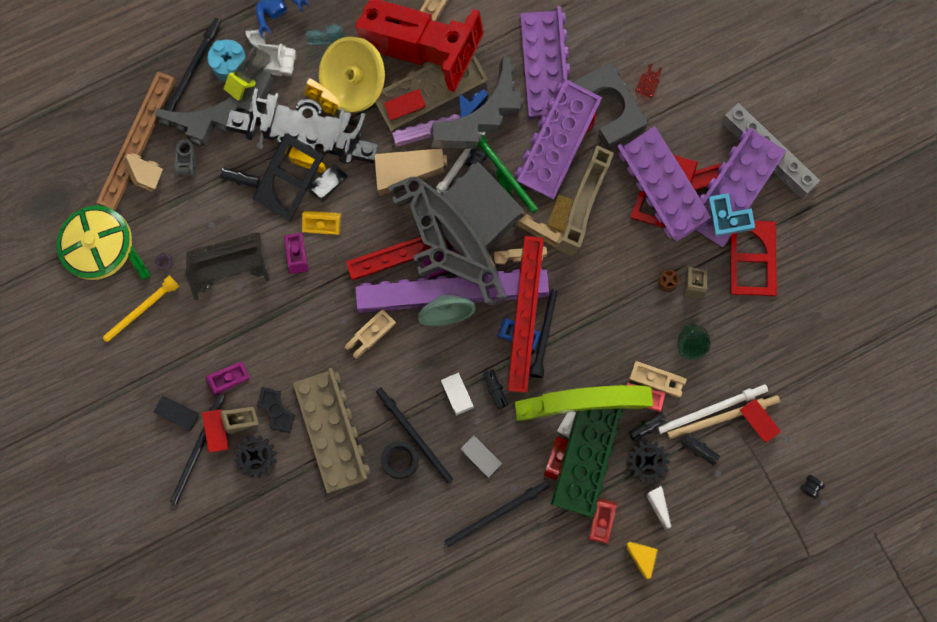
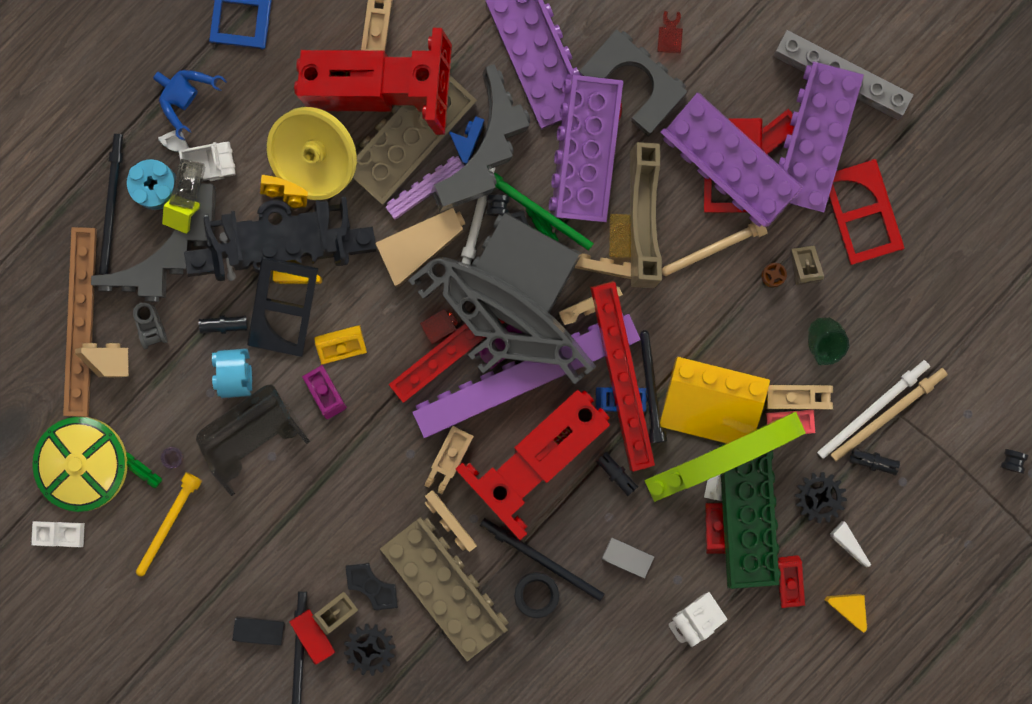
camera: 20 degrees left, 10 degrees up
(57, 288) = (58, 534): none -> white slope
(227, 378) = (301, 569): magenta slope -> none
(232, 212) = (232, 373): none -> medium azure brick
(327, 183) = (330, 293): slope -> none
(332, 33) = (265, 106): clear light blue slope -> none
(353, 380) = (449, 522): none -> tan plate
(399, 232) = (439, 326): none -> clear red brick
(405, 105) = (389, 168): red slope -> none
(439, 353) = (538, 458): none -> red brick
(446, 310) = (528, 403): sand green dish -> none
(457, 394) = (574, 494): white slope -> none
(518, 523) = (698, 620): none -> white piece
(530, 494) = (698, 581): black bar -> none
(588, 356) = (713, 401): none -> yellow slope
(647, 426) = (806, 456): black pin -> none
(665, 242) = (751, 230): none -> tan piece
(725, 220) = (819, 185): medium azure brick -> none
(760, 420) = (932, 406): red slope -> none

